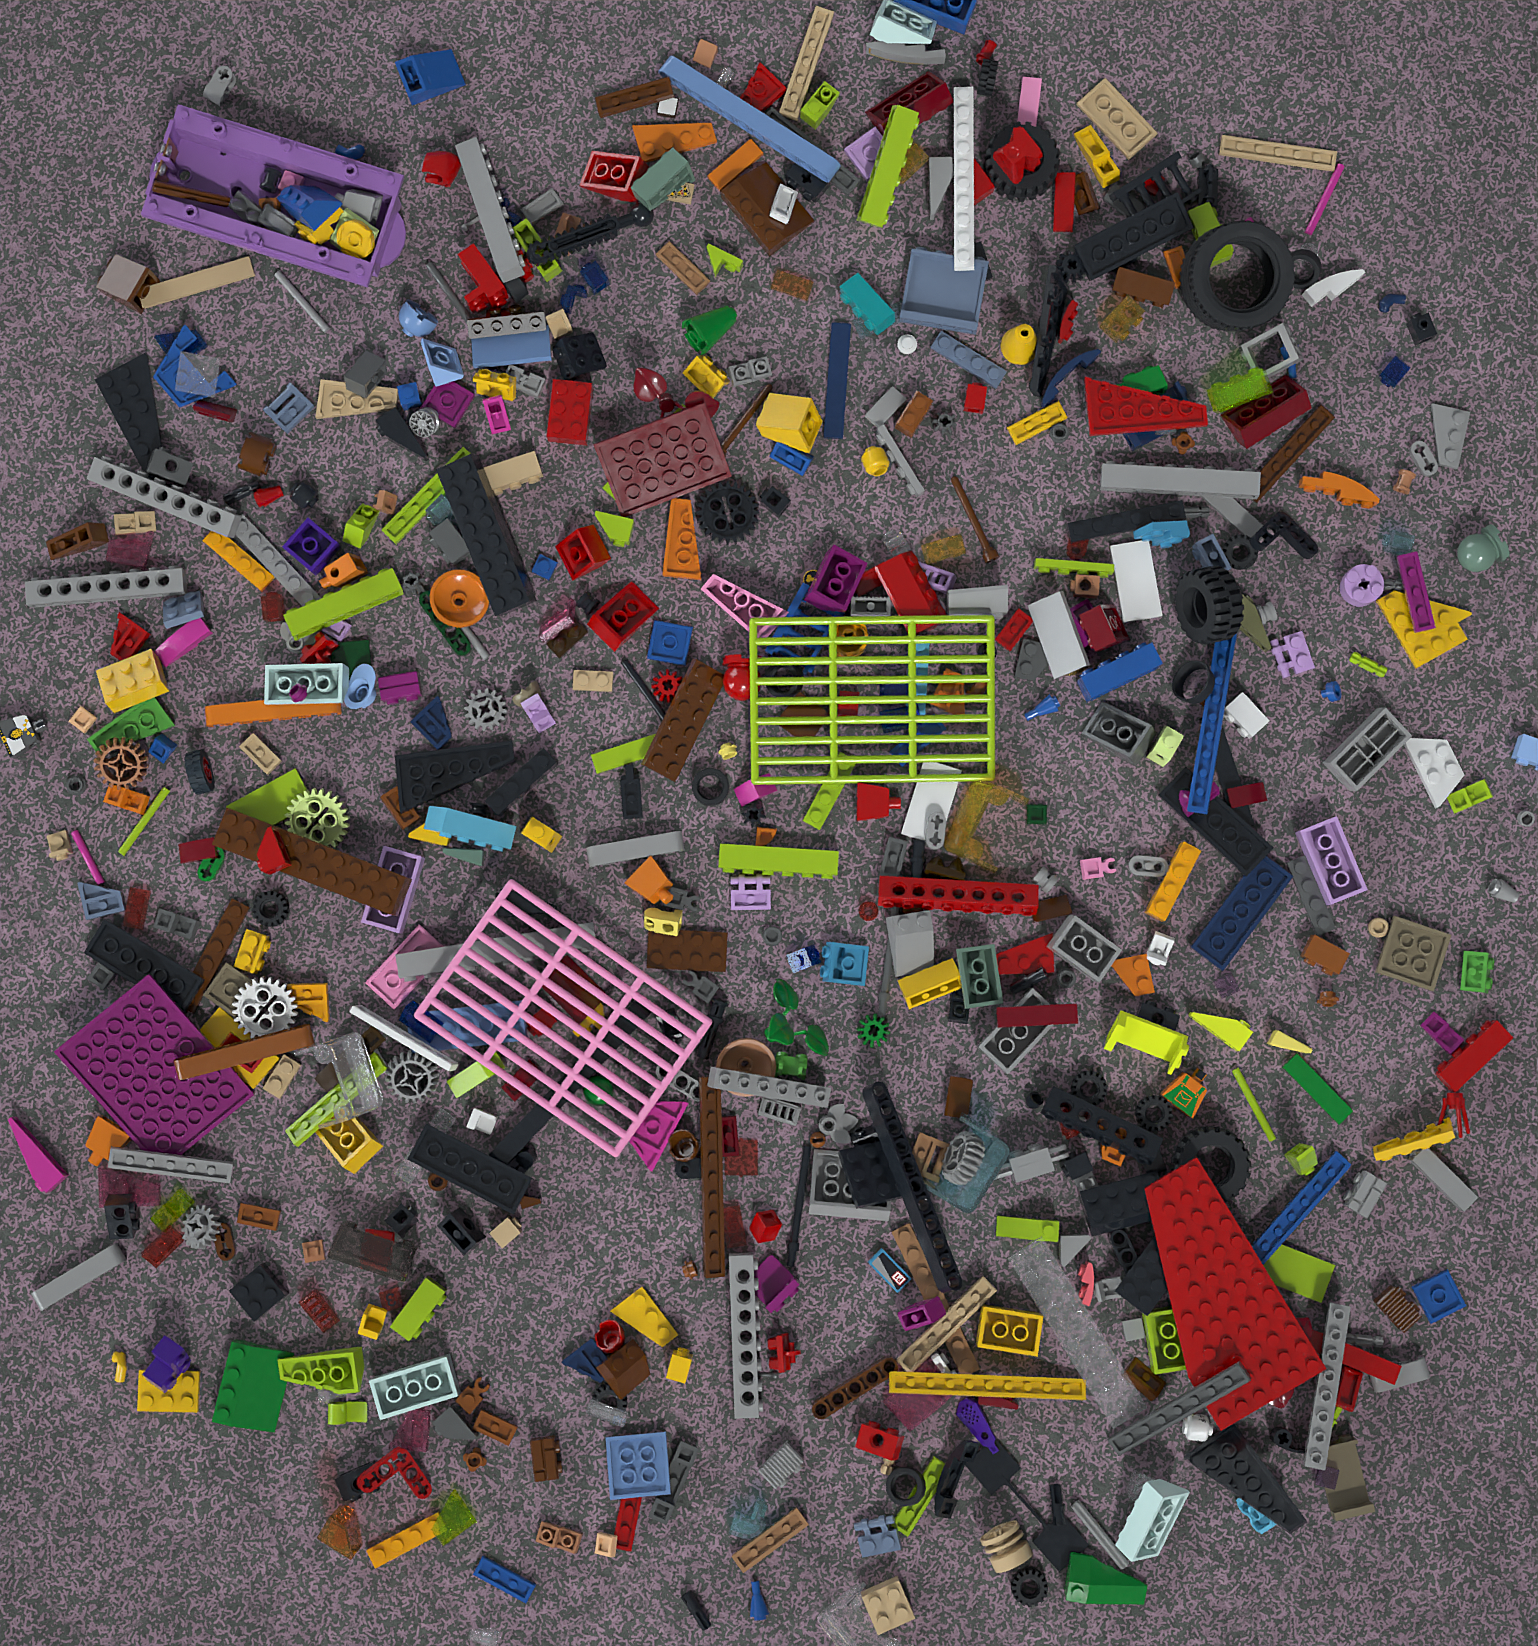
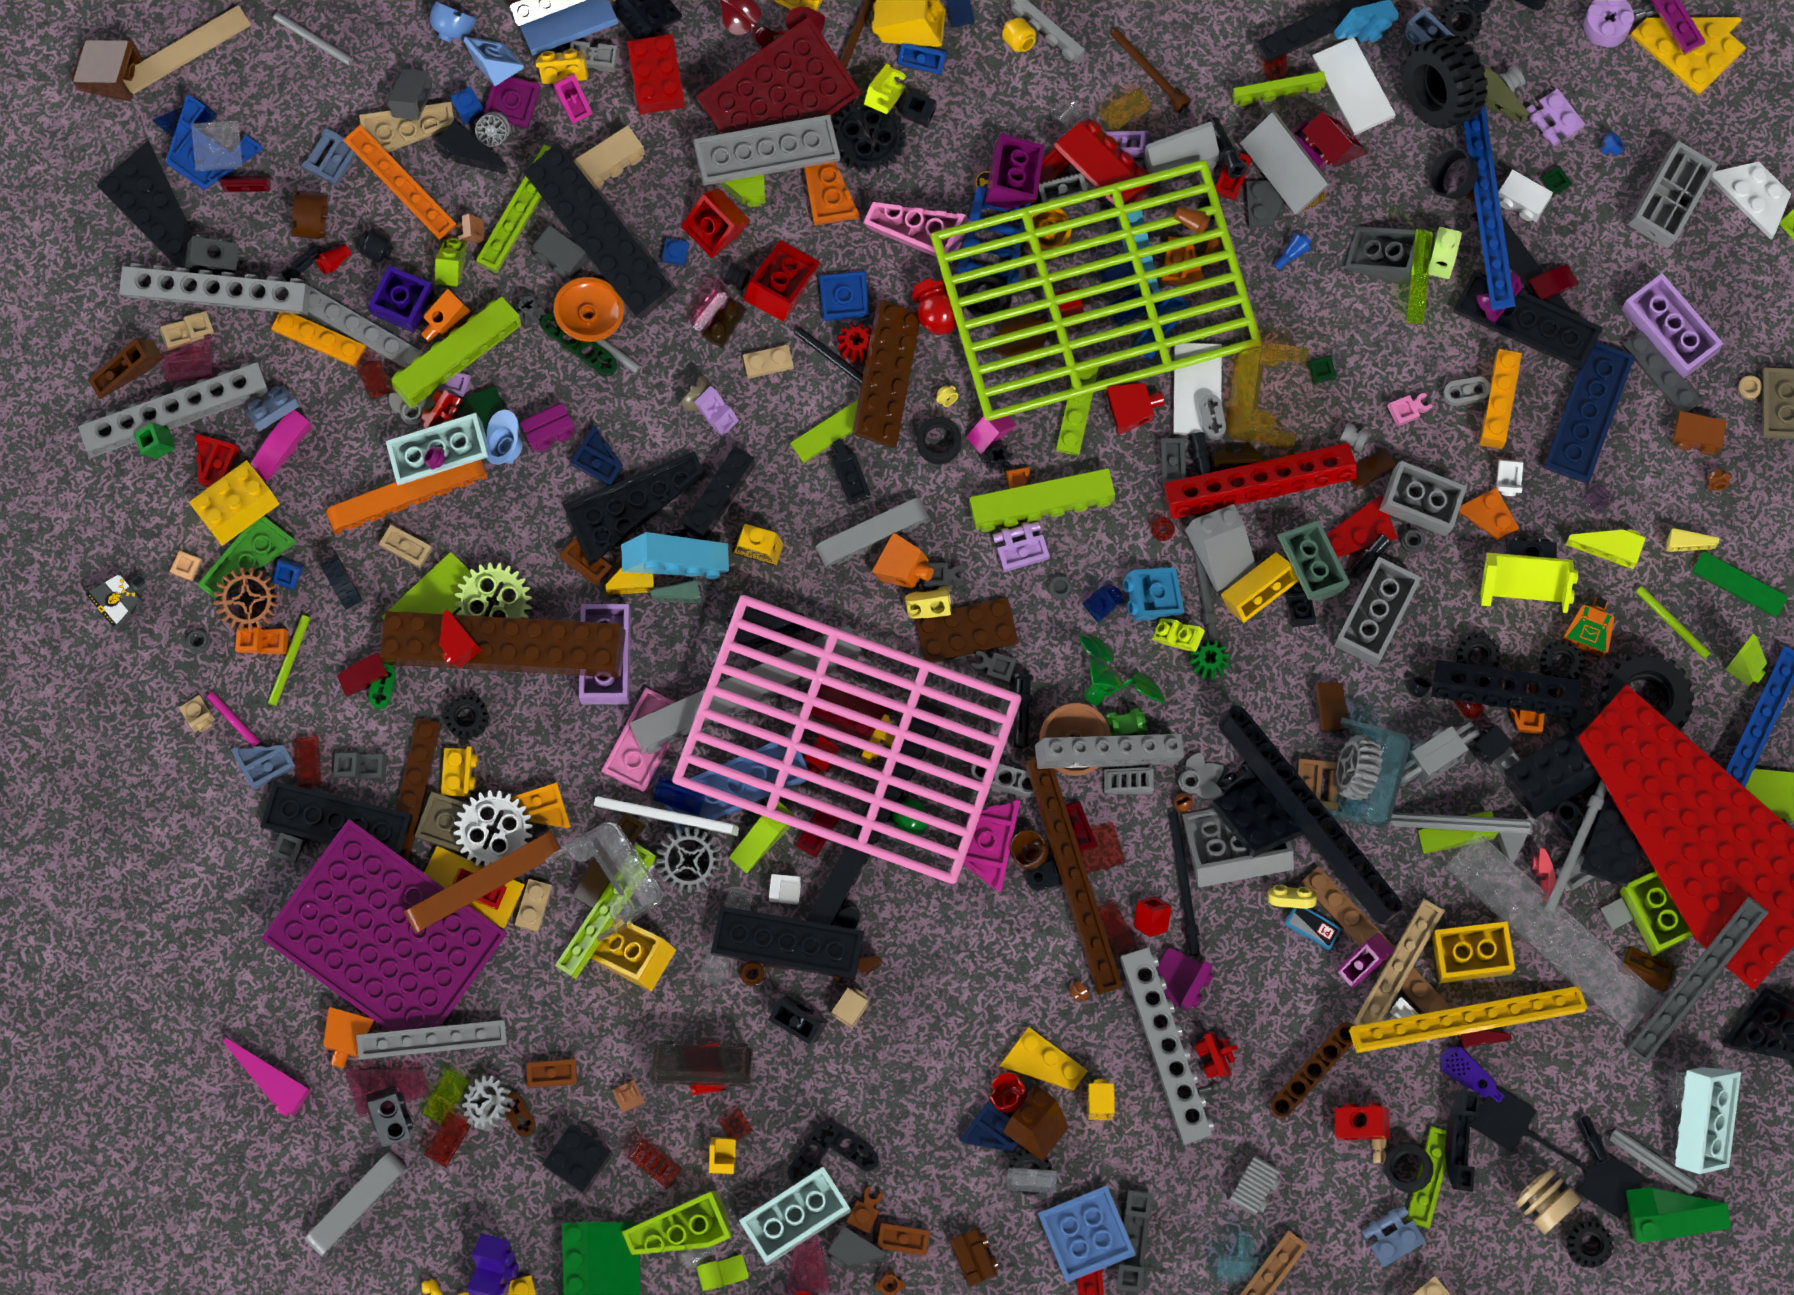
camera: 15 degrees left, 10 degrees down
(83, 610) = (154, 440): none -> green brick
(337, 447) = (400, 182): none -> orange plate
(394, 1220) = (719, 1021): black brick -> none
(419, 1309) = (773, 1126): lime brick -> none
(439, 510) = (538, 220): clear light blue brick -> none
(463, 1336) = (832, 1143): none -> black beam
(492, 714) = (663, 427): light grey gear -> none
(639, 505) = (766, 150): none -> light grey plate
(667, 1029) = (970, 719): black bracket -> none
(752, 479) = (884, 90): none -> neon yellow hinge
(854, 1003) = (1178, 635): none -> neon yellow slope
(880, 1243) = (1292, 897): none -> light yellow plate
(915, 1408) = (1389, 1069): clear pink slope -> none
(967, 664) = (1193, 219): none -> dark orange cone
(1015, 613) = (1229, 154): none -> black pin
(1032, 1226) = (1466, 823): none -> light grey axle
(1037, 1015) = (1393, 584): dark red tile -> none
(1092, 581) = (1301, 97): nougat brick -> none
(1119, 672) = (1366, 185): blue brick -> none
(1138, 762) = (1419, 277): none -> clear neon green tile
(1143, 1240) = (1595, 804): none -> light grey bar
(1197, 1427) = (1726, 1004): white head -> none
(1275, 708) = (1556, 180): none -> dark green tile
(1368, 664) = (1644, 105): lime axle -> none

